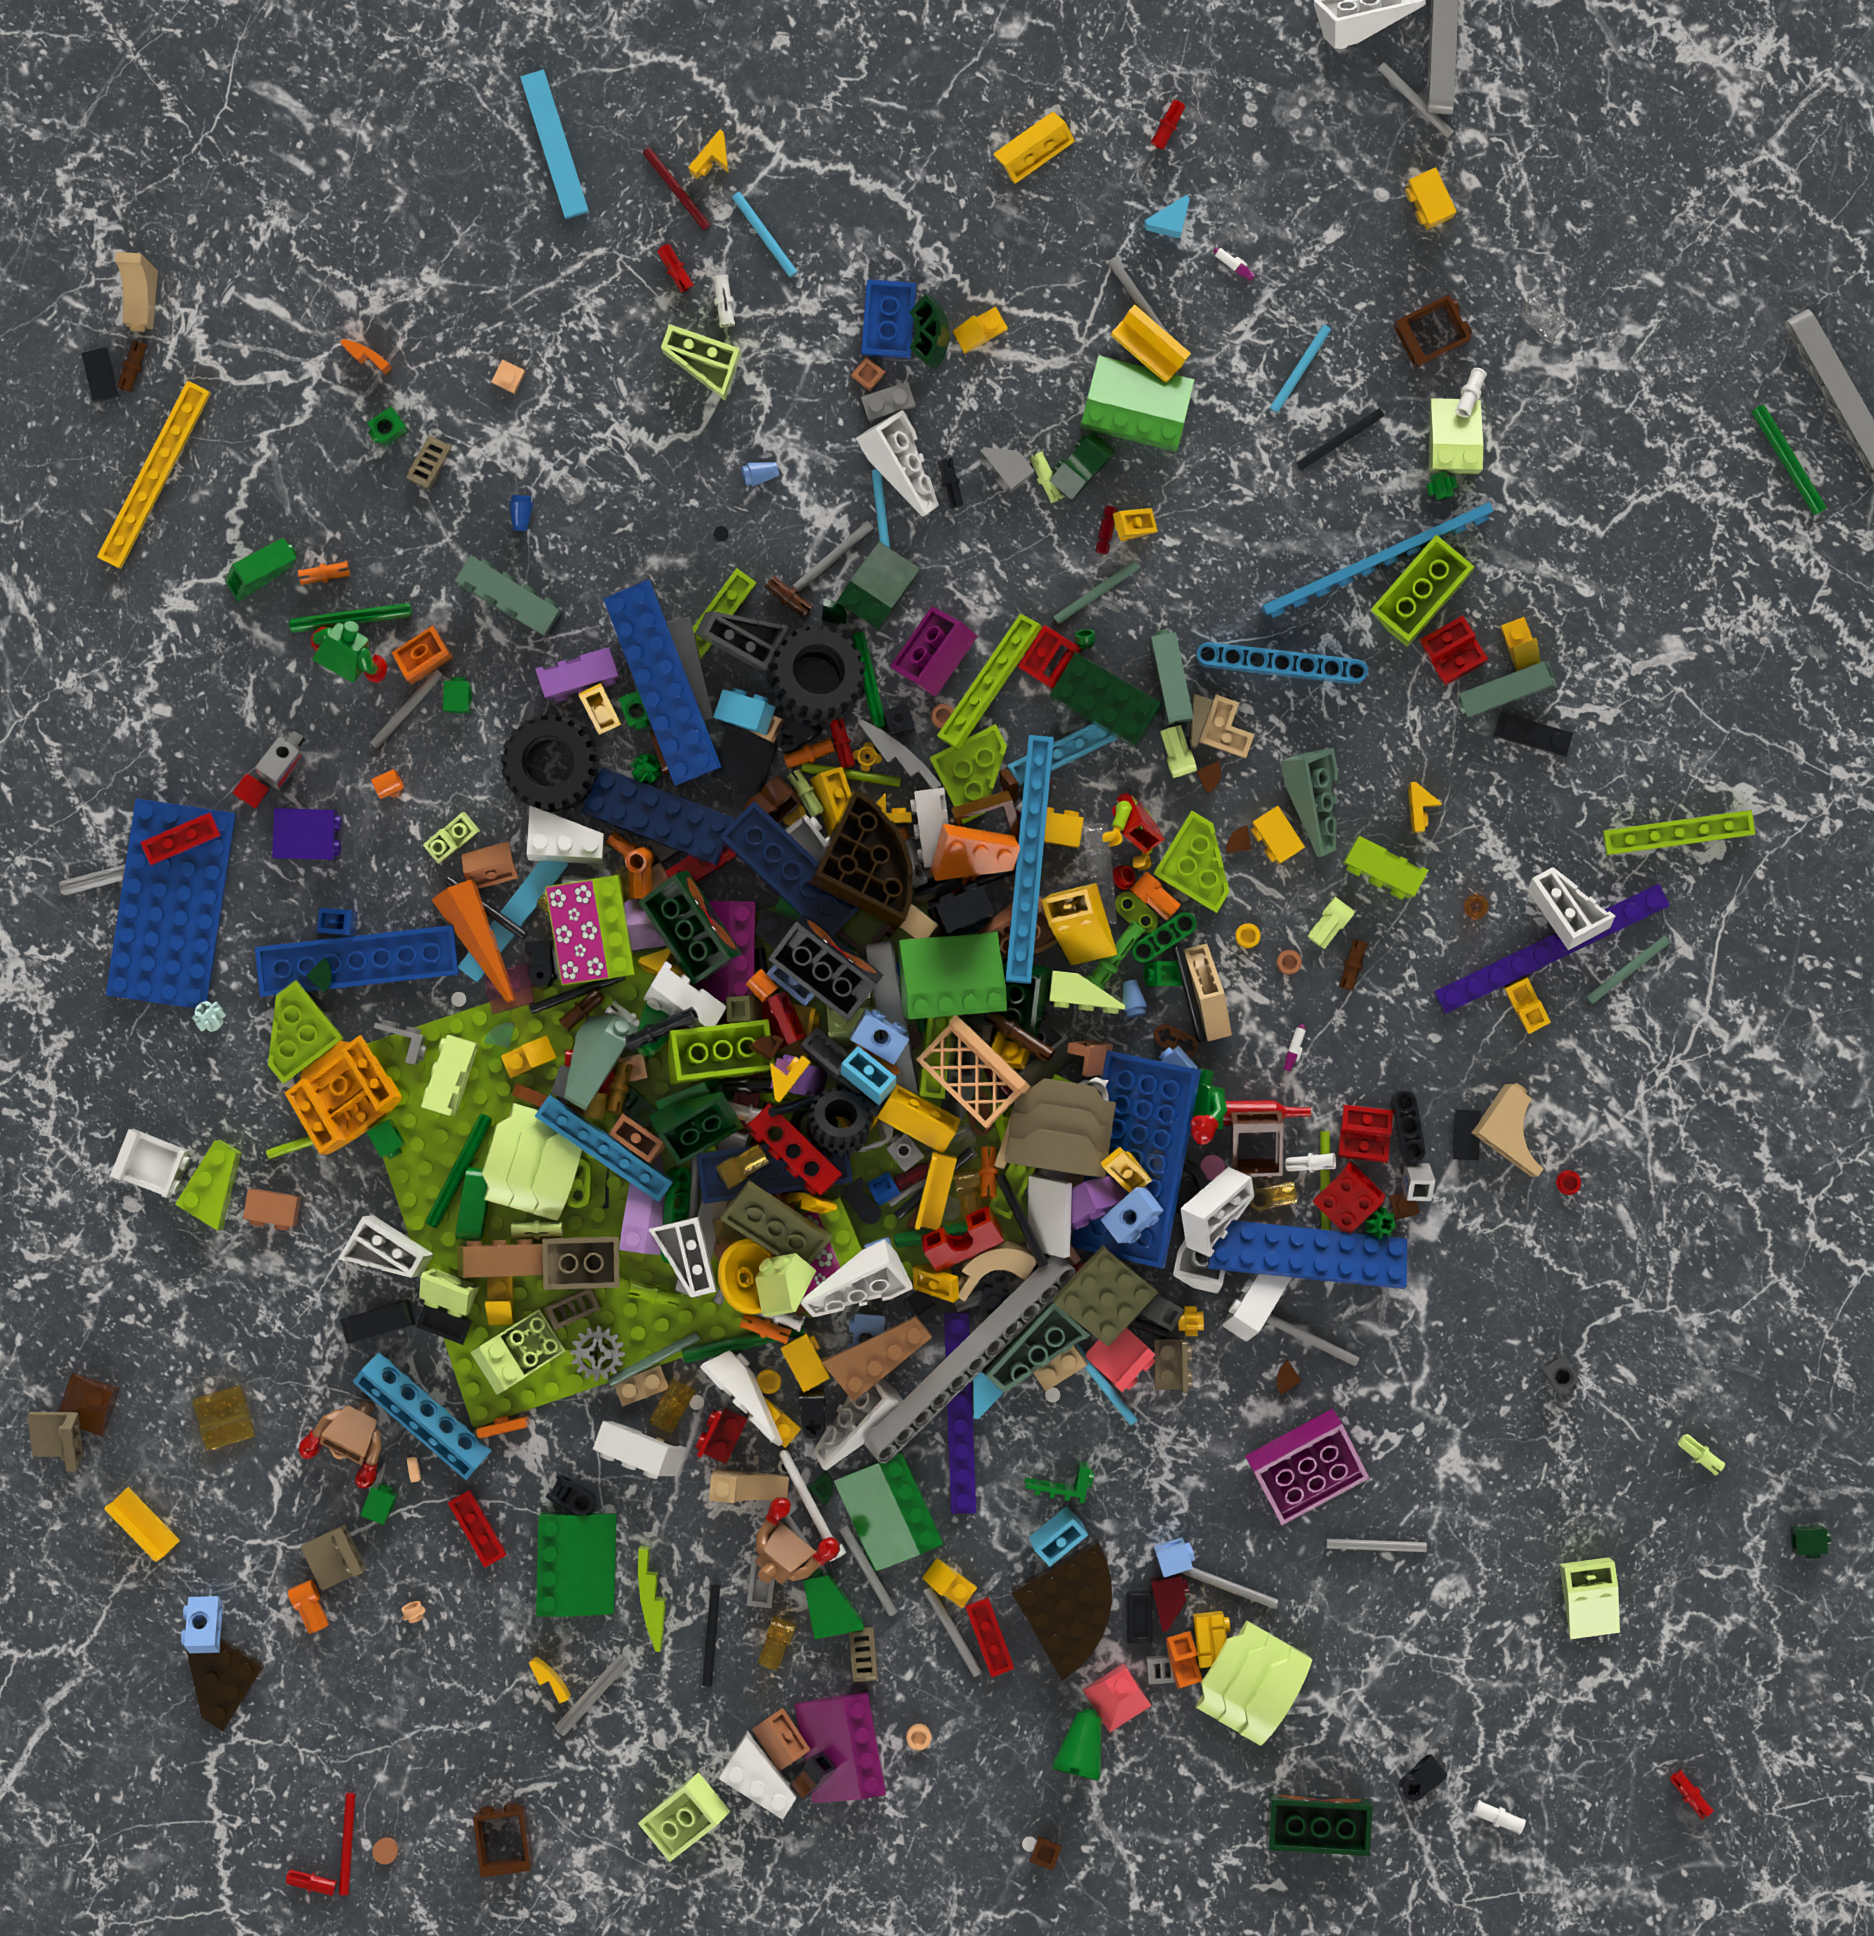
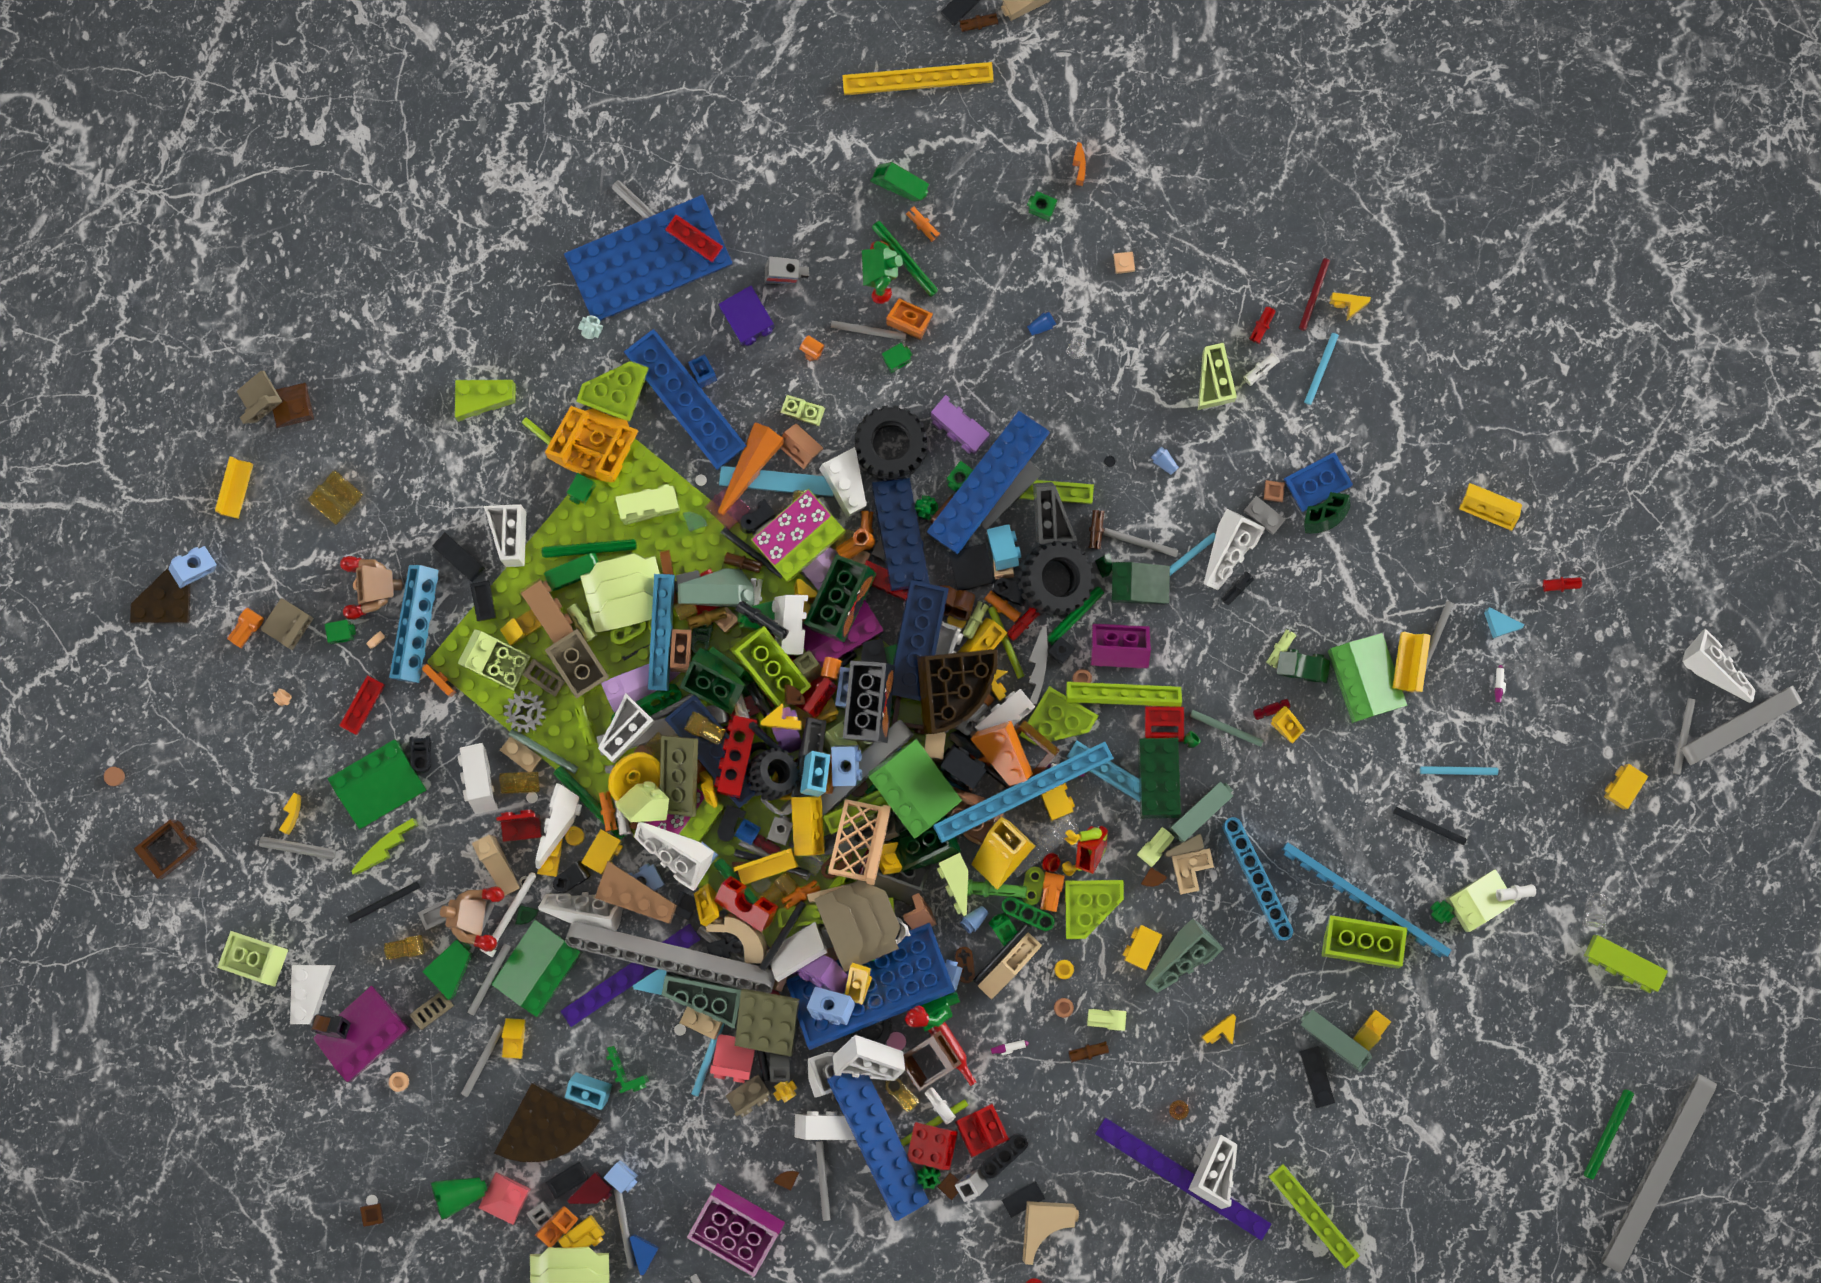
camera: 55 degrees right, 5 degrees down
(150, 1163) = (472, 349): white panel -> none
(251, 790) = (753, 264): red slope -> none
(272, 1208) = (491, 444): nougat brick -> none
(311, 1882) = (64, 741): red axle -> none
(321, 975) = (661, 382): dark green tile -> none
(347, 1843) = (104, 748): red bar -> none
(412, 474) = (1035, 239): dark tan slope -> none
(416, 1049) = (650, 473): light grey bracket -> none
(447, 1291) = (505, 589): yellowish green slope -> none
(495, 914) = (770, 469): black bar -> none
(507, 596) = (982, 349): sand green wedge -> none
(528, 1056) = (691, 547): yellow slope -> none
(554, 144) = (1292, 199): medium azure tile -> none
(599, 708) = (946, 453): yellow slope -> none
(781, 1739) = (342, 990): nougat panel -> none
(867, 763) = (1025, 650): yellow plate -> none
(979, 330) = (1349, 545): yellow slope -> none
(989, 1637) = (493, 1087): red plate -> none
(1008, 466) = (1272, 619): light grey slope -> none
(1009, 783) = (1065, 749): reddish brown tile -> none
(1011, 1030) = (903, 859): reddish brown pin -> none
(1239, 840) = (1123, 924): reddish brown tile -> none
(1268, 1581) = (644, 1252): none -> blue slope
(1384, 868) = (1165, 1032): lime wedge -> none
(1410, 342) = (1522, 832): reddish brown window -> none
(1453, 650) = (1338, 988): red slope -> none
(1527, 1004) = (1135, 1185): yellow slope -> none
(1620, 323) = (1625, 963): none -> lime brick
(1628, 969) = (1201, 1239): sand green piece -> none

